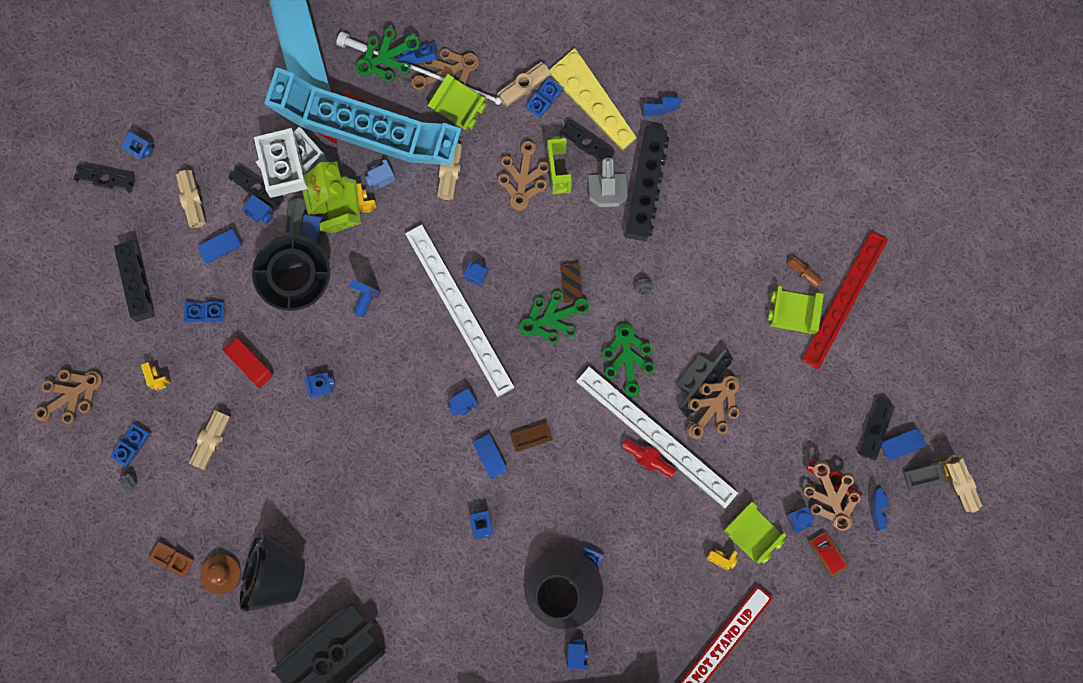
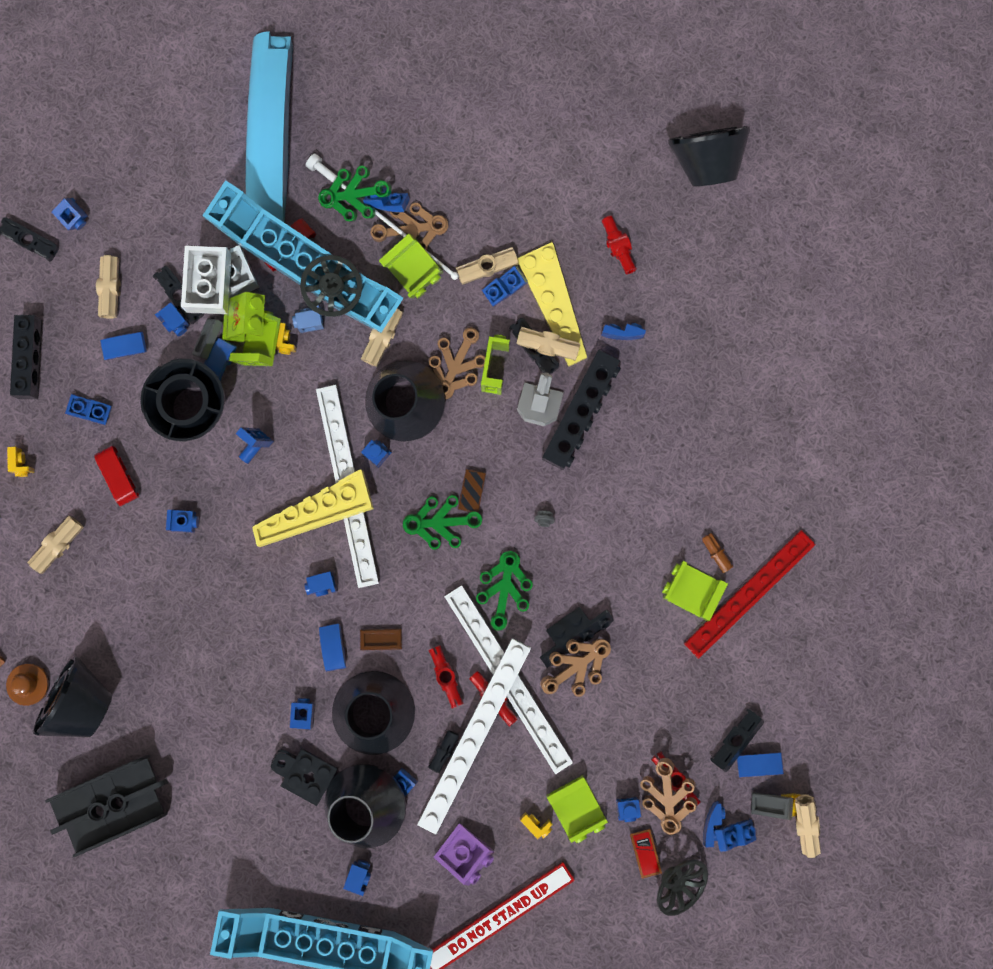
camera: 20 degrees right, 5 degrees up
(393, 136) = (331, 285): none -> pearl dark grey wheel
(450, 329) = (330, 505): none -> light yellow wing
(490, 574) = (296, 767): none -> black plate
(502, 236) = (428, 403): none -> black cone
(544, 531) = (399, 703): none -> black cone
(600, 134) = (548, 343): none -> tan piece
(606, 460) = (450, 687): none -> red pin
(619, 519) = (443, 751): none -> black pin
(633, 33) = (619, 245): none -> red pin
(642, 496) = (474, 736): none -> white plate
(667, 605) = (464, 855): none -> medium lavender plate
(864, 570) = (676, 882): none -> pearl dark grey wheel
(903, 512) = (735, 835): none -> blue slope

